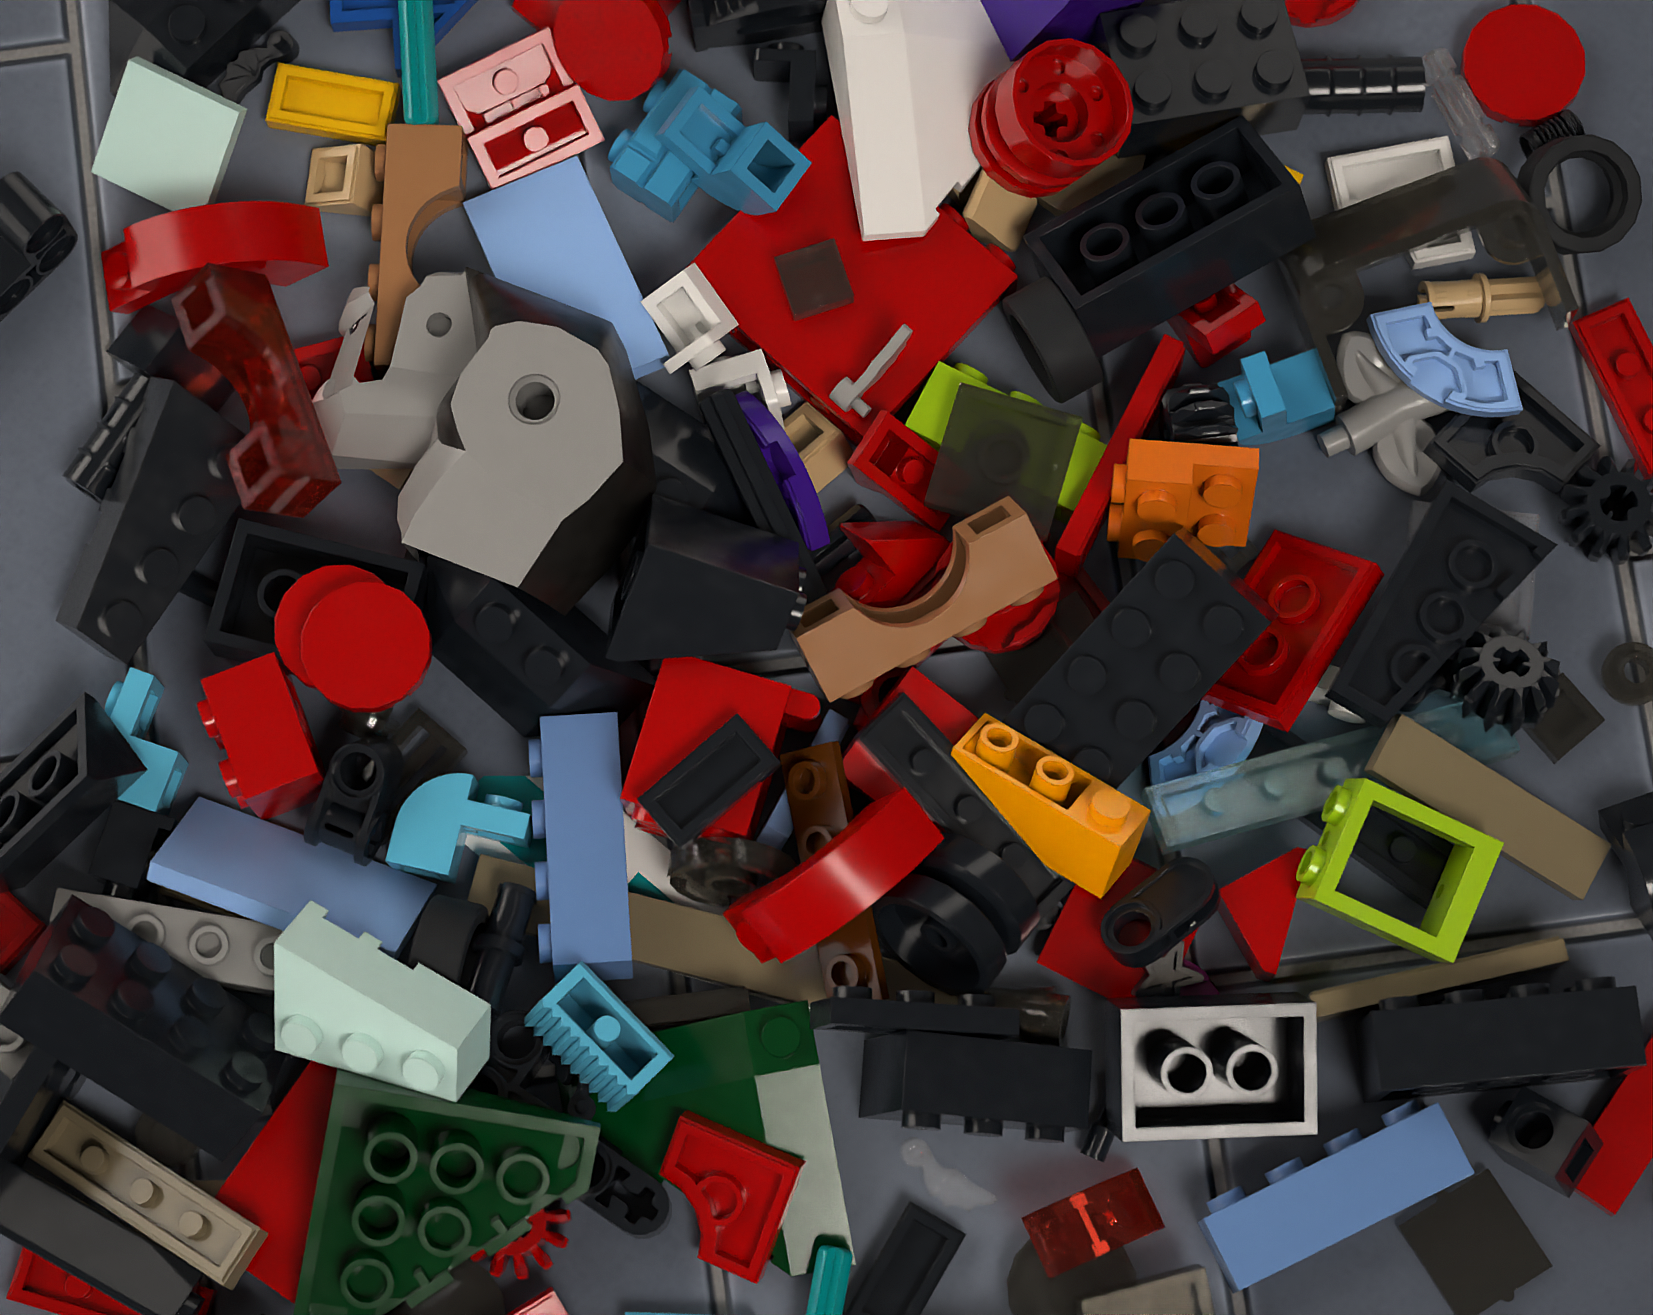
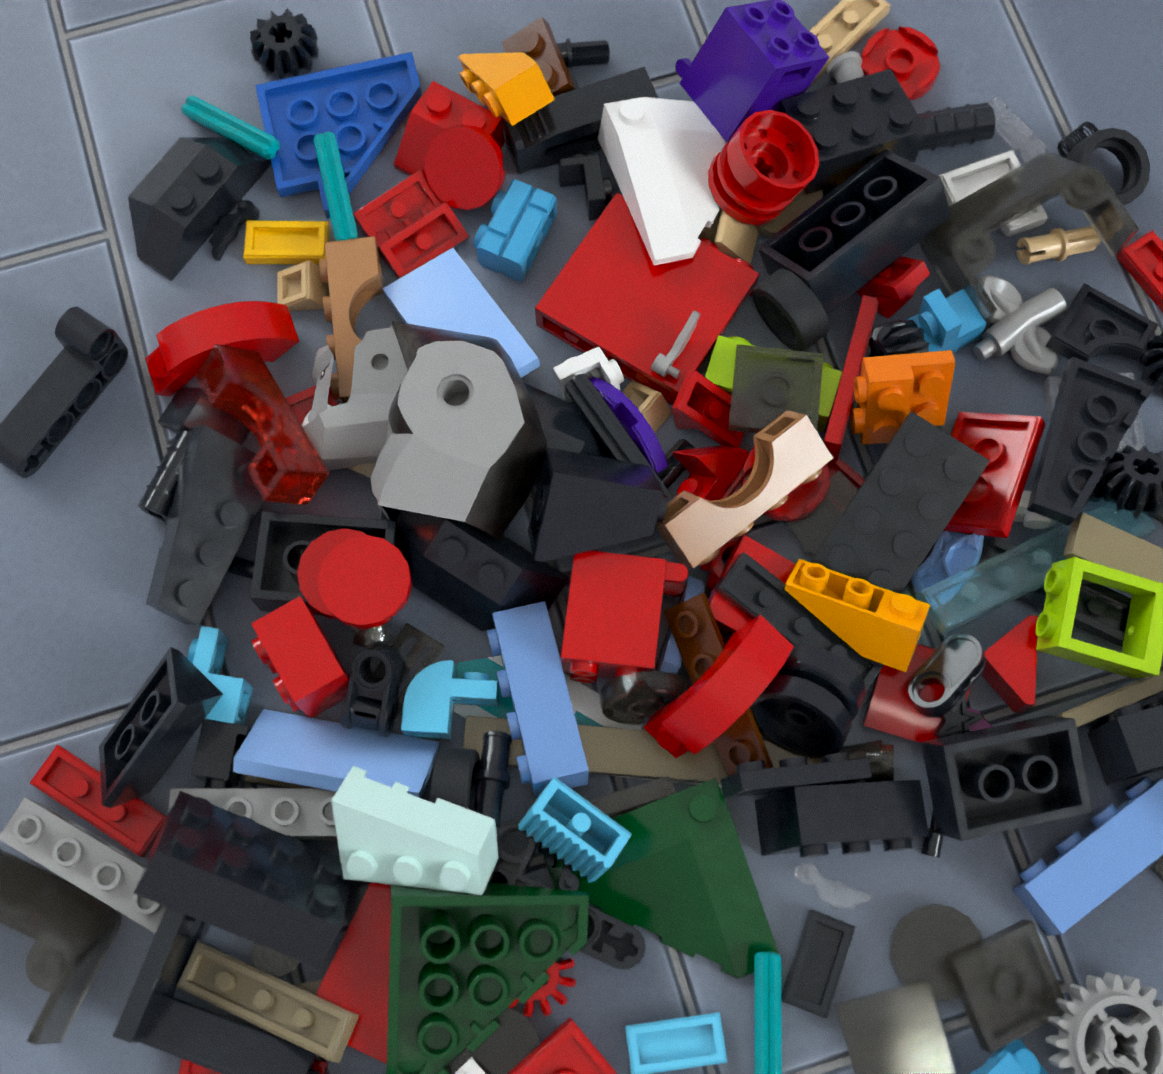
camera: 10 degrees left, 5 degrees down
(168, 138) = (178, 274): light aqua tile -> none
(690, 318) = (548, 332): white bracket -> none
(709, 782) = (622, 635): black tile -> none
(733, 163) = (559, 230): dark azure brick -> none
(736, 1191) = (689, 923): red tile -> none
(814, 279) = (626, 295): clear smoke tile -> none
(1093, 1222) = (945, 903): clear red slope -> none
(1443, 366) = (1048, 287): light blue tile -> none
(1523, 64) = (1049, 100): red tile -> none

